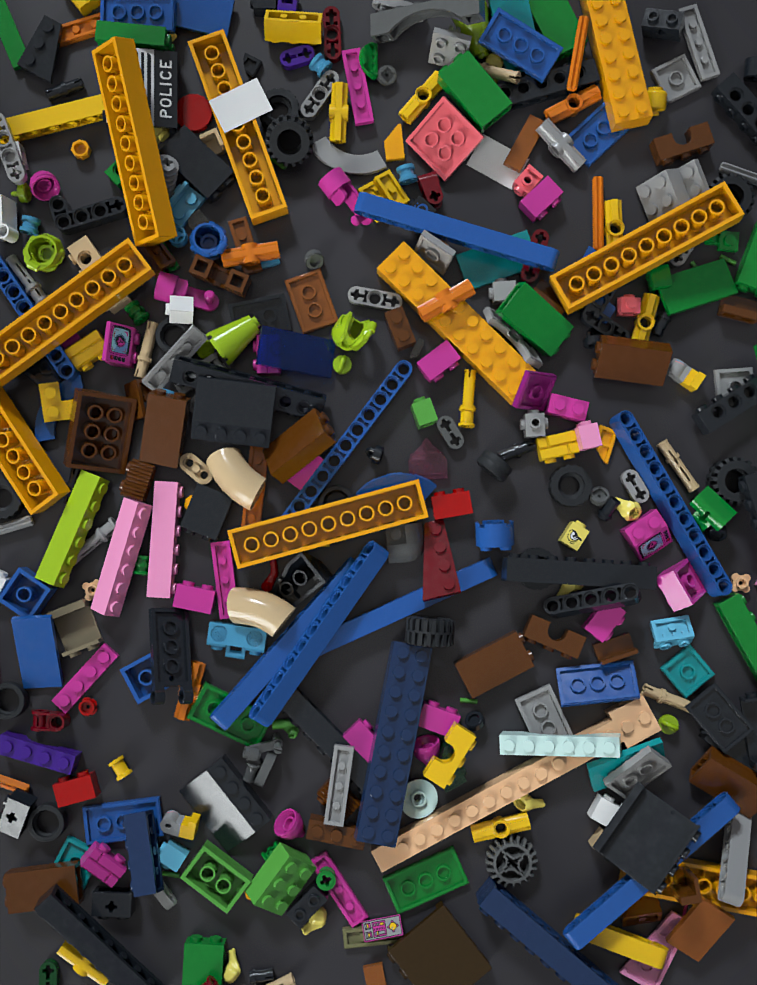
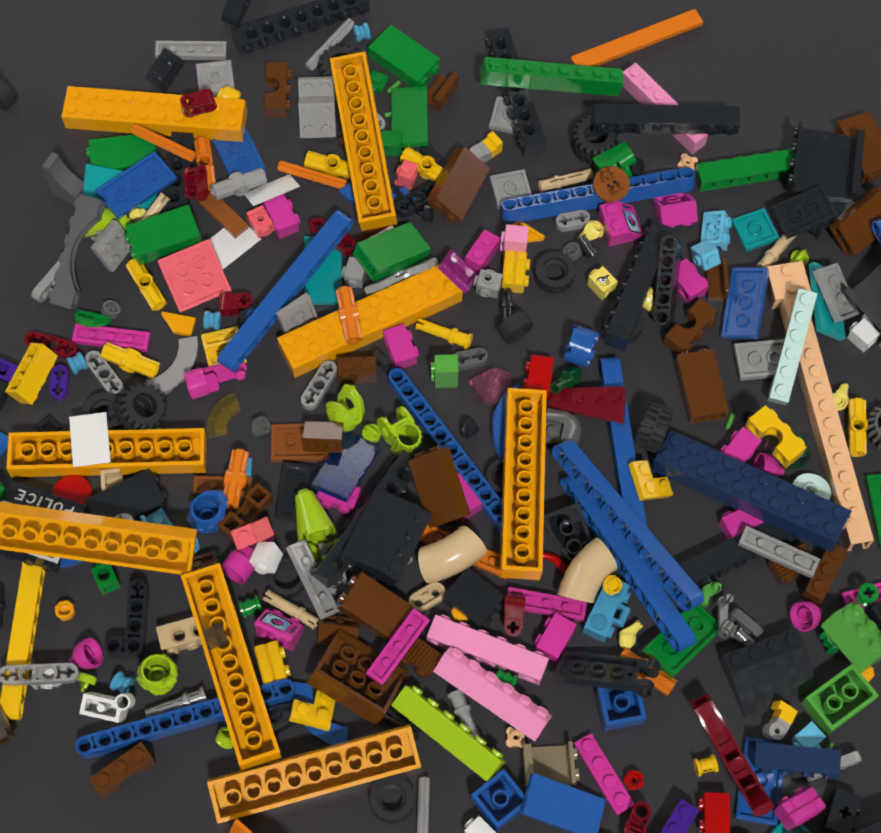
camera: 70 degrees left, 20 degrees down
(78, 289) = (214, 636): none -> clear smoke tile
(123, 797) = (732, 755): none -> dark red arch
(132, 458) = (397, 647): none -> dark pink plate
(198, 289) = (252, 533): none -> coral slope
(200, 554) = (514, 611): none -> dark red piece
(219, 663) = (627, 636): none -> light yellow animal
(255, 636) = (612, 584): none -> yellow plate
(314, 218) = (221, 415): none -> clear yellow tile
(316, 320) = (323, 437): none -> reddish brown brick
(343, 384) = (404, 427): none -> lime piece
(369, 641) = (647, 486): none -> yellow plate
(455, 532) = (566, 379): none -> dark green arm
(543, 103) = (196, 184): none -> dark red piece
(565, 180) = (271, 190): none -> white sticker
(629, 69) = (199, 102): none -> dark red piece
(637, 630) = (705, 255): none -> medium azure brick
(651, 413) = (509, 186): none -> light grey tile
(687, 506) = (606, 177): none -> dark orange plate

